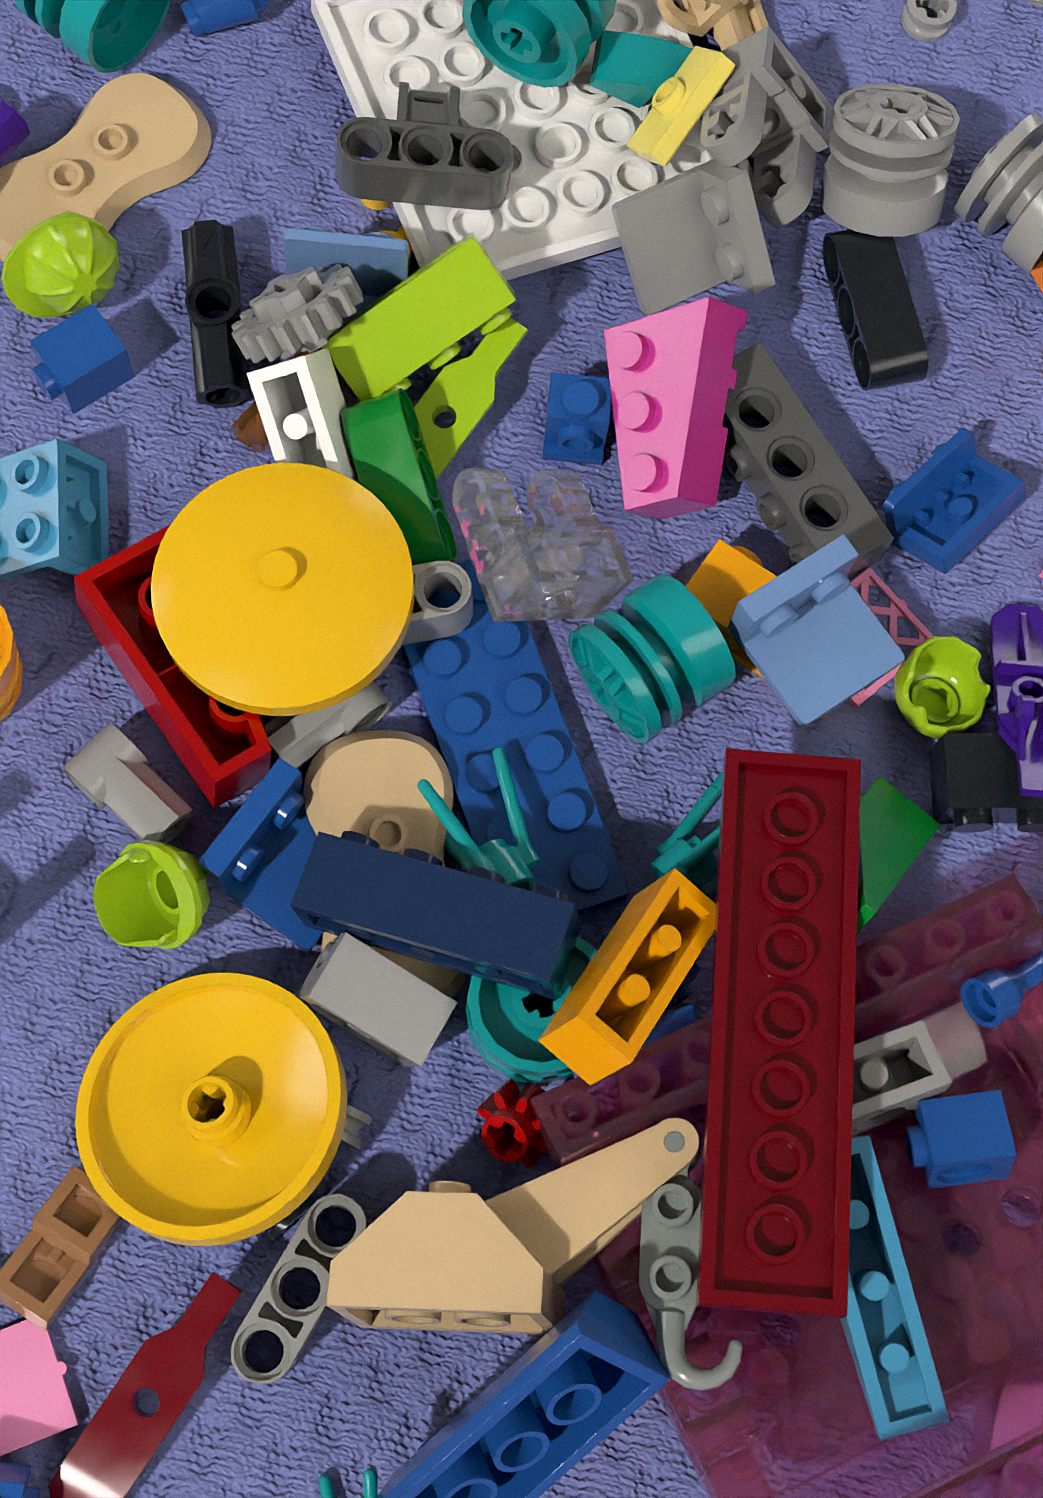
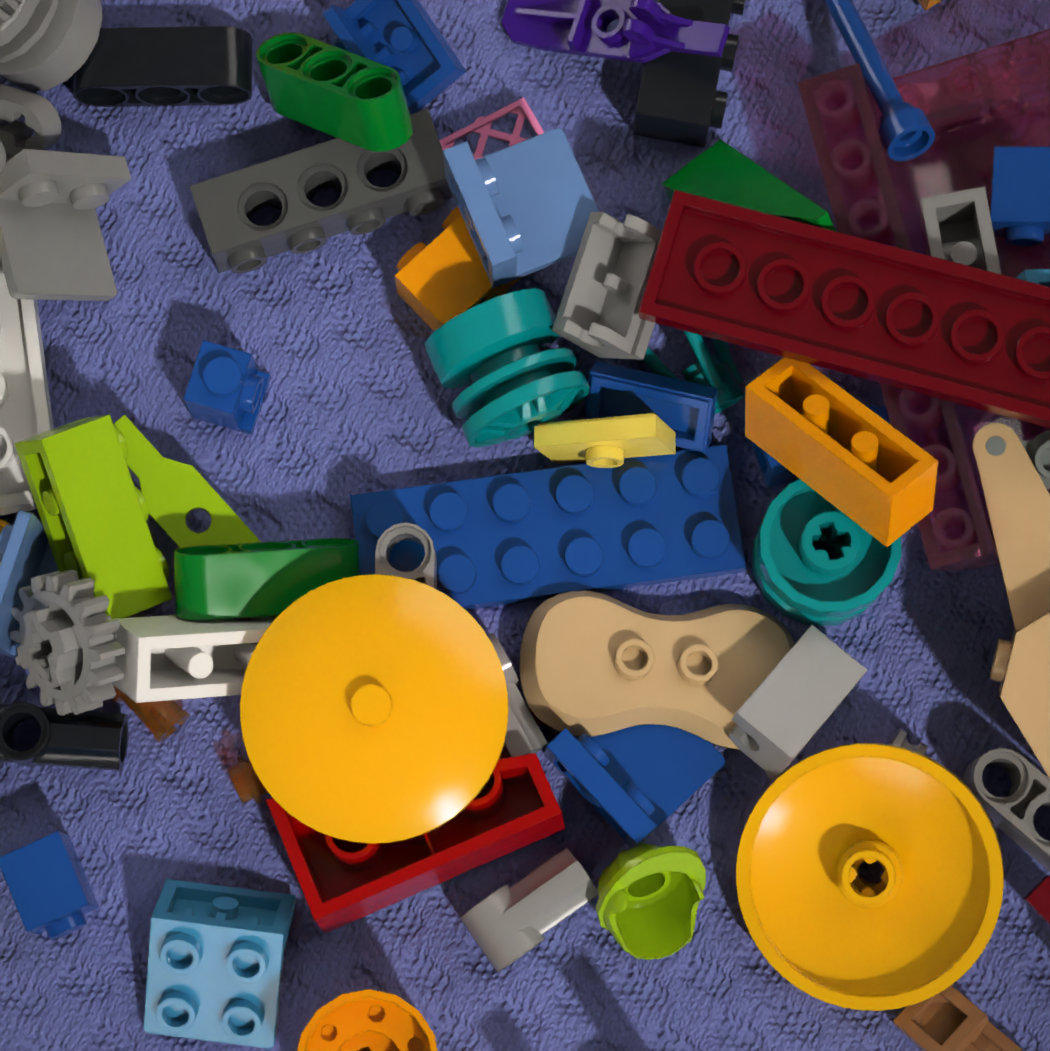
camera: 70 degrees left, 5 degrees up
(438, 912) = (737, 621): dark blue brick -> none
(506, 860) = (691, 561): teal plant -> none
(511, 1124) = (929, 596): red gear -> none
(544, 571) = (385, 421): clear brick -> none
(602, 768) = (605, 440): none -> light yellow plate
(648, 809) = (681, 404): none -> blue tile
(670, 404) = (247, 290): wedge -> none
(749, 721) = (608, 288): none -> light grey hinge
(886, 449) = (335, 91): none -> green beam
(941, 687) = (585, 103): lime hair -> none

